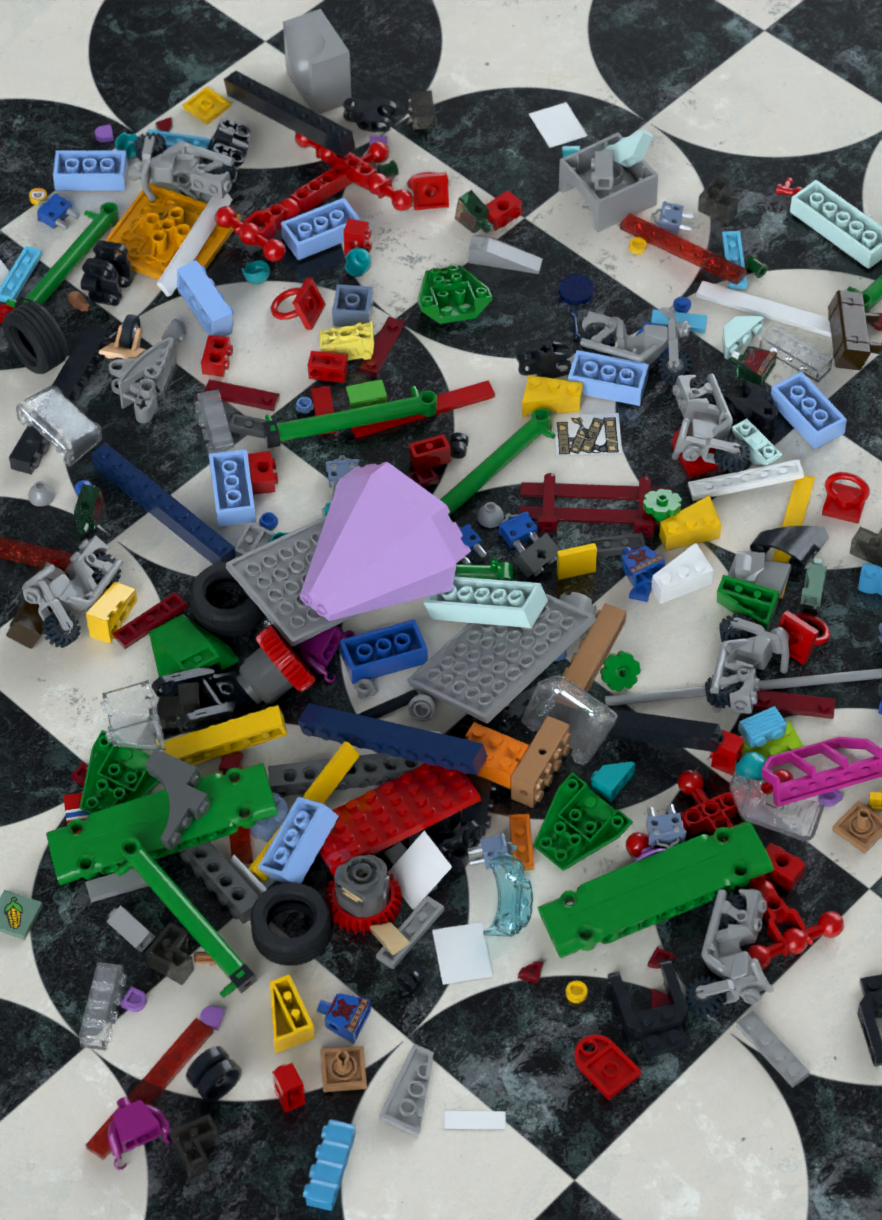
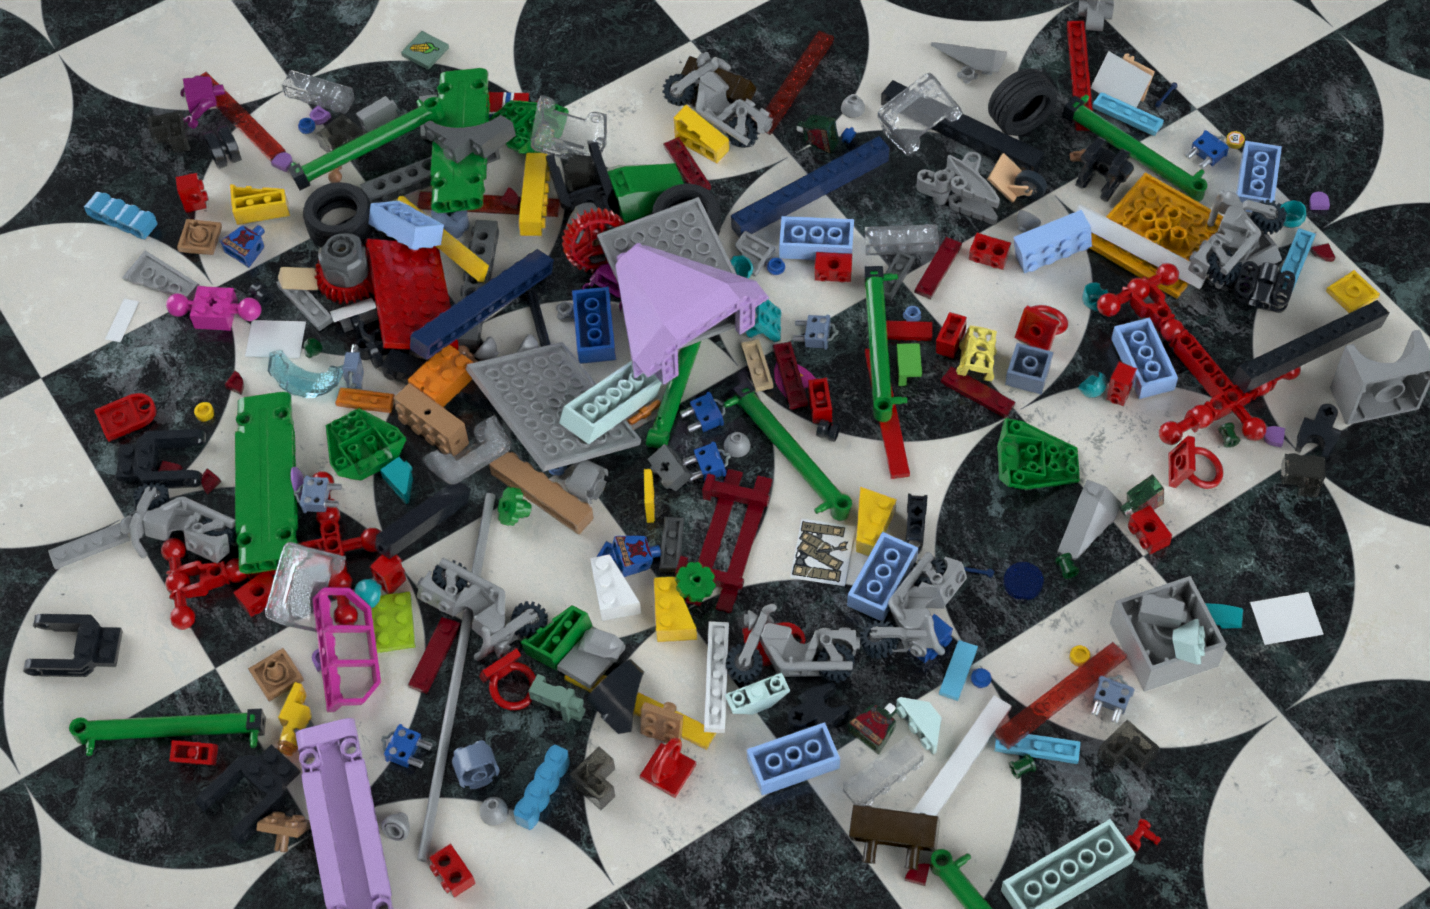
camera: 105 degrees right, 5 degrees up
(154, 1006) = (306, 125): none -> blue plate
(443, 1017) = (213, 307): none -> dark pink brick
(469, 905) = (312, 347): none -> dark green tile
(554, 260) = (1067, 565): none -> dark green bush
(762, 727) = (404, 608): medium azure brick -> none
(809, 503) = (661, 722): none -> medium nougat plate

